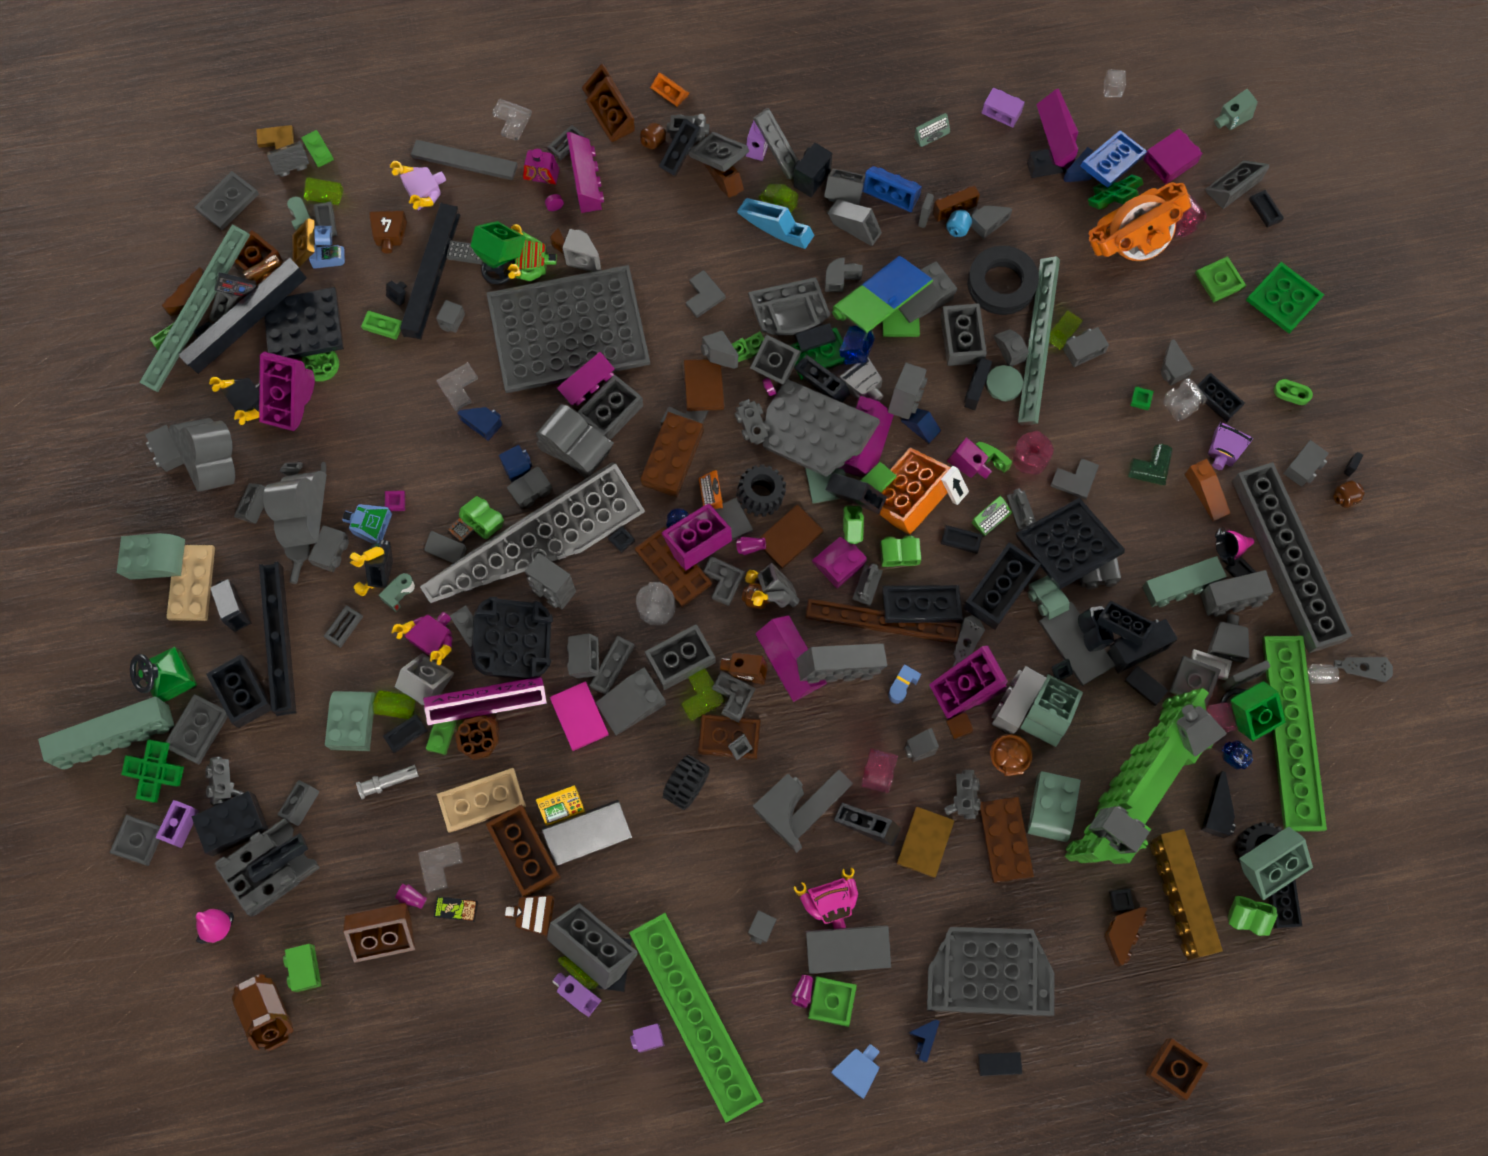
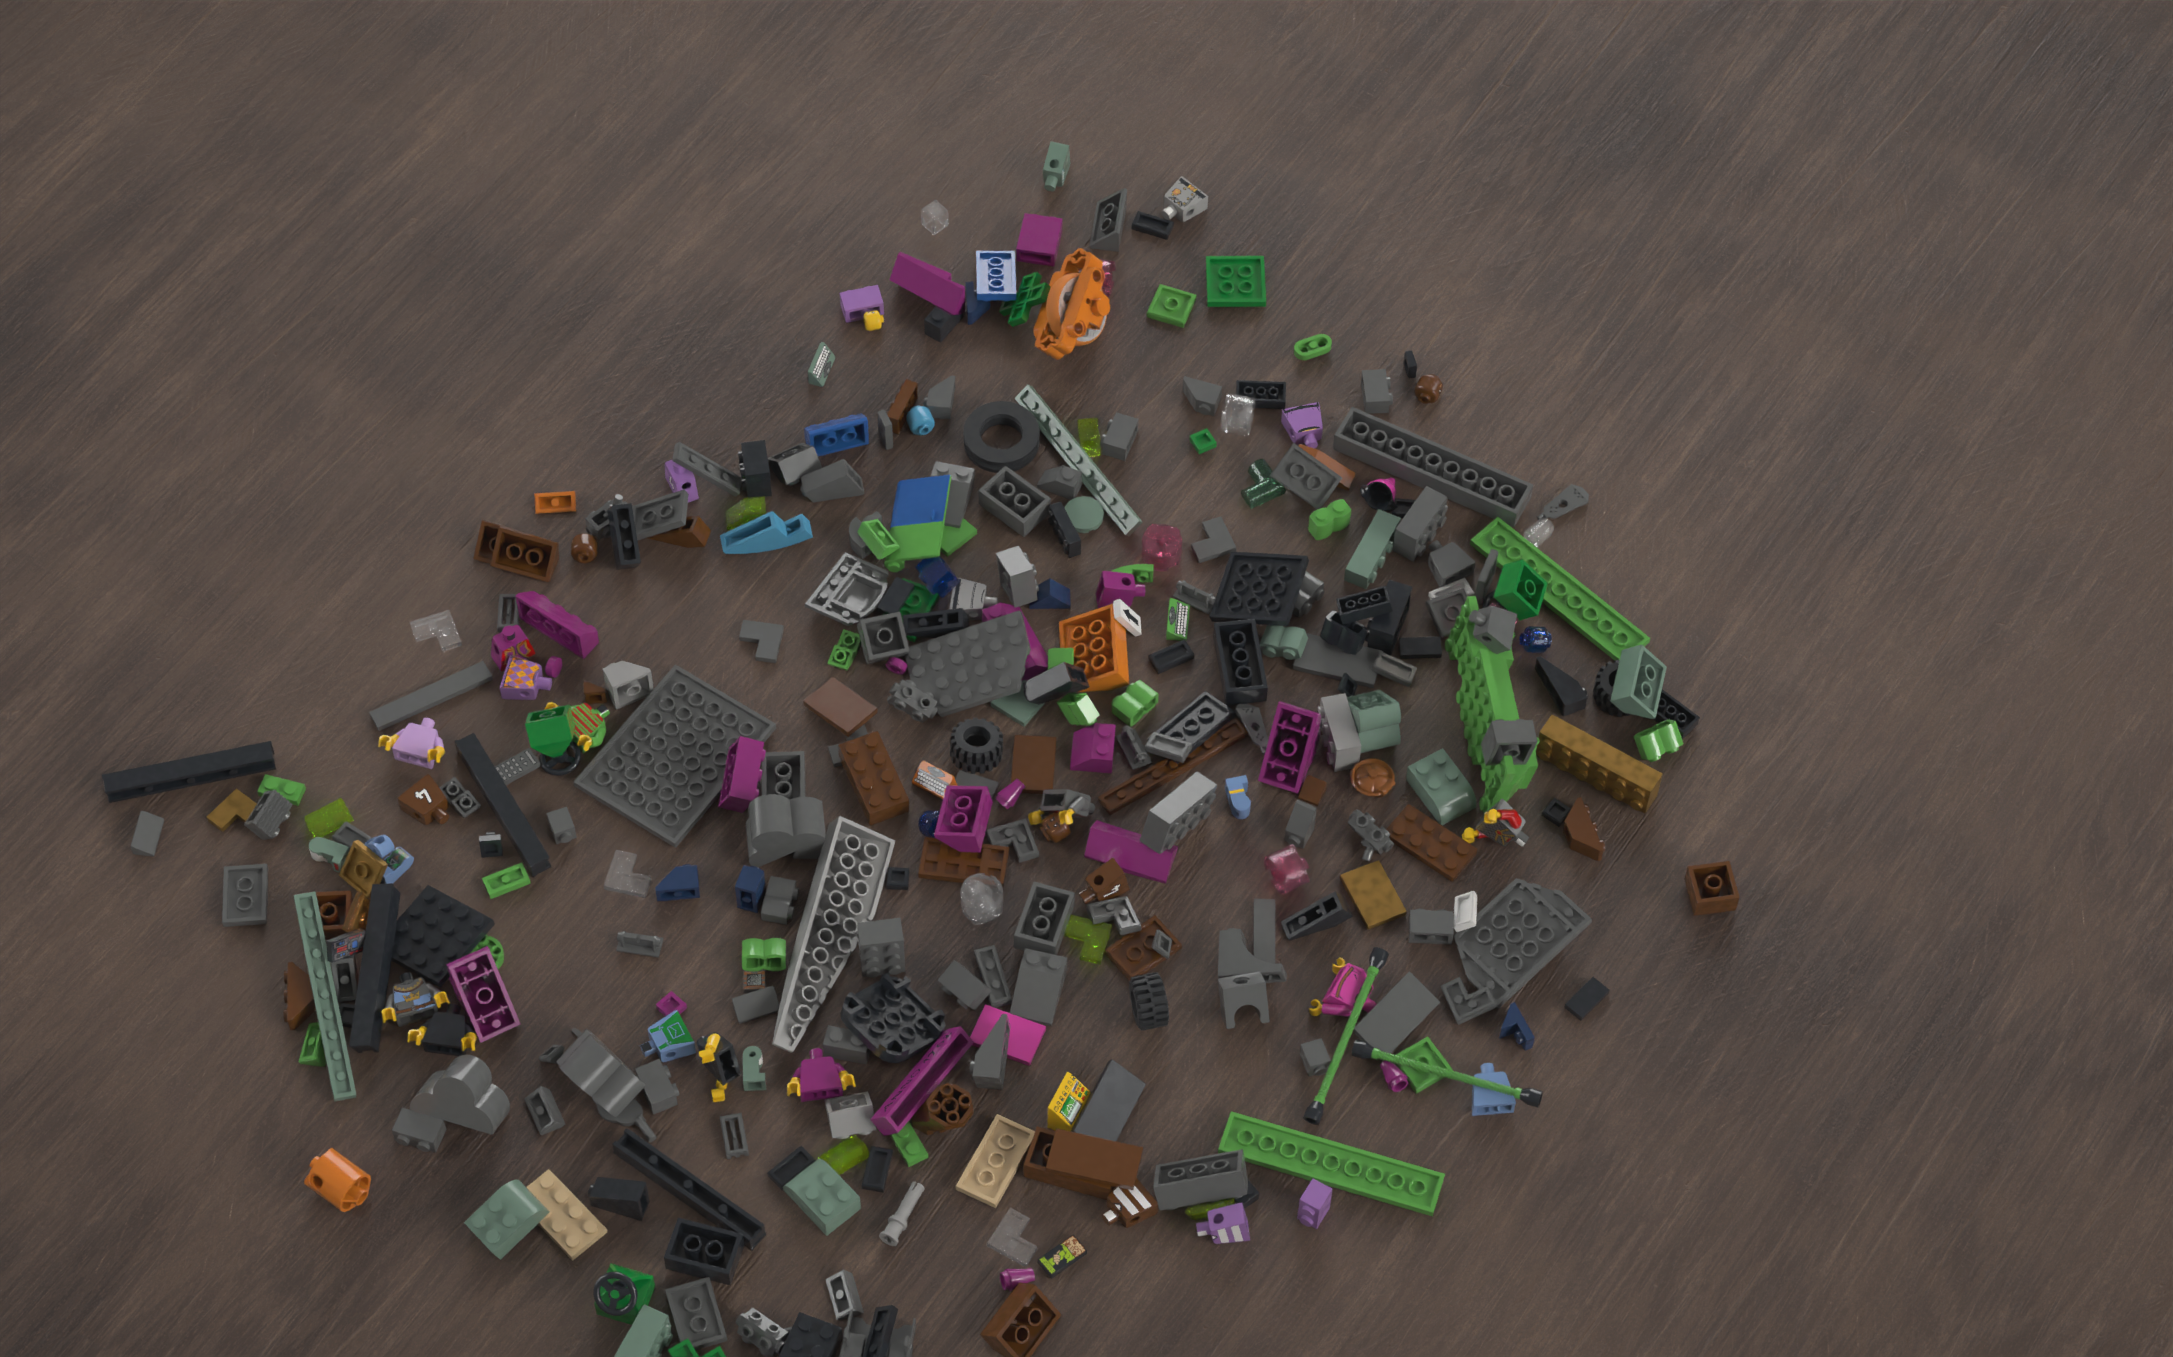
camera: 45 degrees left, 15 degrees down
(83, 439) = (338, 1180): none -> orange cylinder
(213, 111) = (147, 834): none -> dark grey slope
(242, 356) = (413, 1001): none -> torso
(276, 91) = (189, 772): none -> black tile
(355, 681) = (790, 1167): none -> black tile
(411, 243) = (459, 799): none -> dark grey slope
(417, 440) = (639, 944): none -> dark grey hinge
(526, 195) = (523, 680): none -> medium lavender torso
(532, 865) = (1094, 1159): none -> reddish brown tile
(542, 728) = (991, 1058): none -> dark grey slope
(719, 350) = (827, 667): dark grey slope -> none
(723, 966) = (1376, 961): none -> bright green hose
(754, 836) = (1241, 991): none -> dark grey piece
(842, 285) = (877, 538): none -> bright green slope
(874, 1105) = (1528, 1095): none -> bright green hose
(887, 606) = (1168, 747): none -> dark grey tile
(905, 986) = (1467, 1006): none -> dark grey tile
(941, 904) = (1431, 926): none -> dark grey brick
(975, 917) = (1465, 911): none -> white tile
(998, 125) = (873, 320): none -> yellow piece
(1065, 876) = (1500, 824): none -> torso
(1109, 686) = (1394, 669): none -> dark grey tile
(1178, 534) = (1330, 519): none -> bright green brick
(1187, 487) = (1306, 476): none -> dark grey tile
(1305, 208) = (1184, 201): none -> light grey torso

